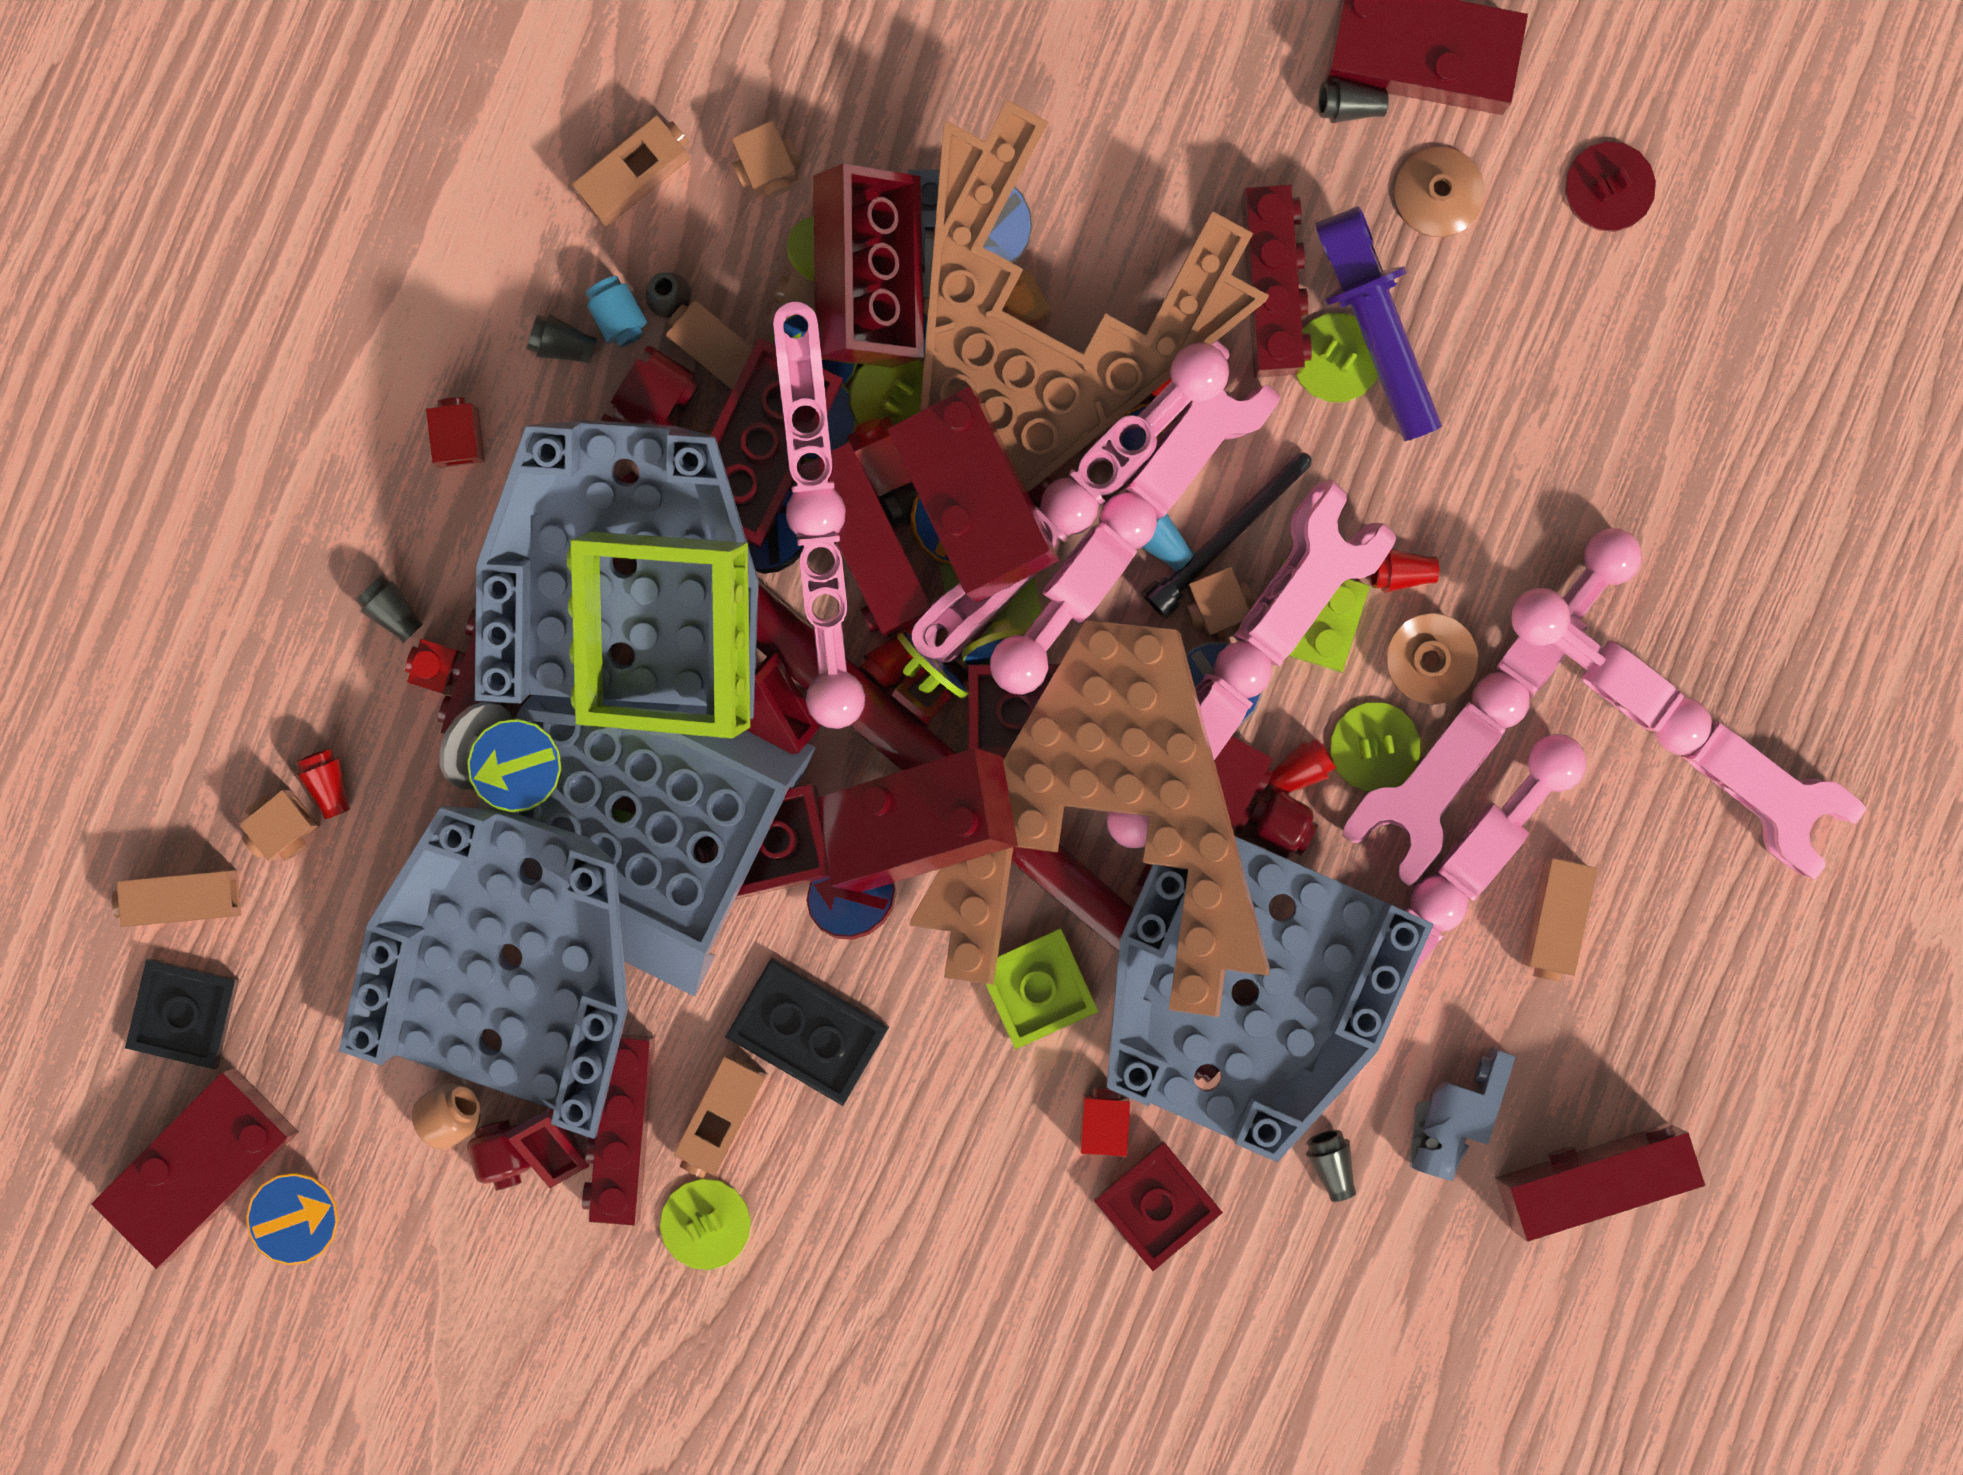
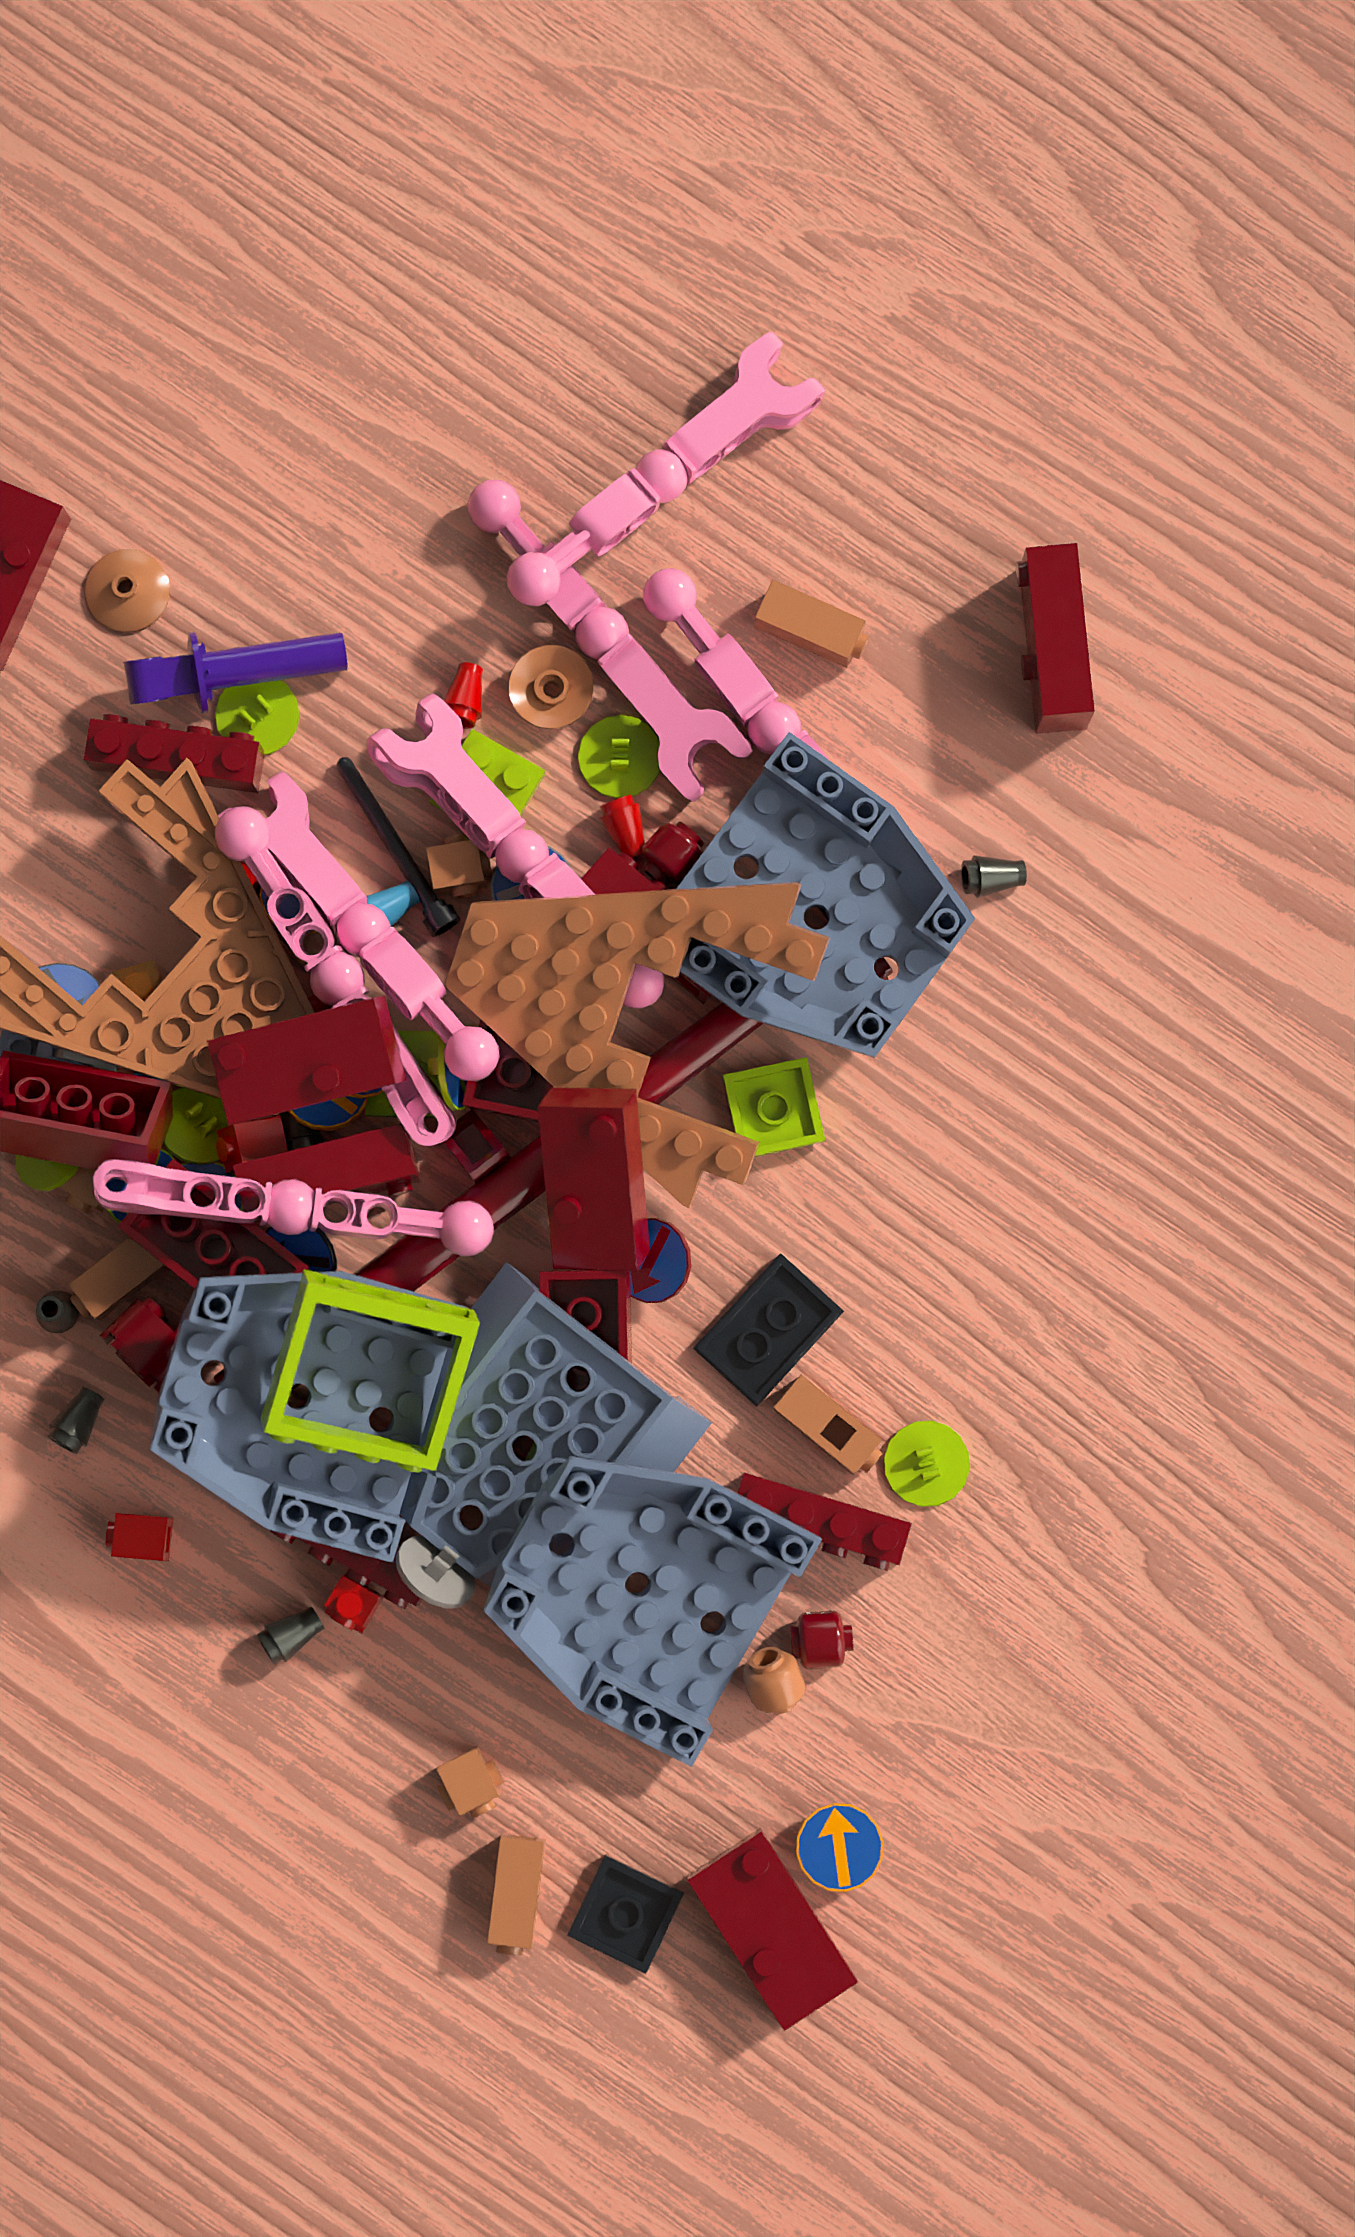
camera: 70 degrees left, 5 degrees down
(324, 782) = (437, 1730): red cone -> none
(514, 765) = (461, 1538): blue piece -> none
(548, 1148) = (824, 1591): dark red slope -> none
(616, 311) = (62, 1362): dark azure brick -> none
(780, 709) = (466, 1283): dark red slope -> none
(887, 663) = (441, 1175): red cone -> none
(939, 671) = (454, 1137): lime piece -> none
(1104, 1123) = (910, 1073): red brick -> none
(1158, 1206) = (996, 1041): dark red plate -> none
(1349, 101) = (26, 651): pearl dark grey cone -> none
(1458, 1114) = (970, 752): sand blue plate -> none
(1610, 186) = (158, 437): dark red piece -> none

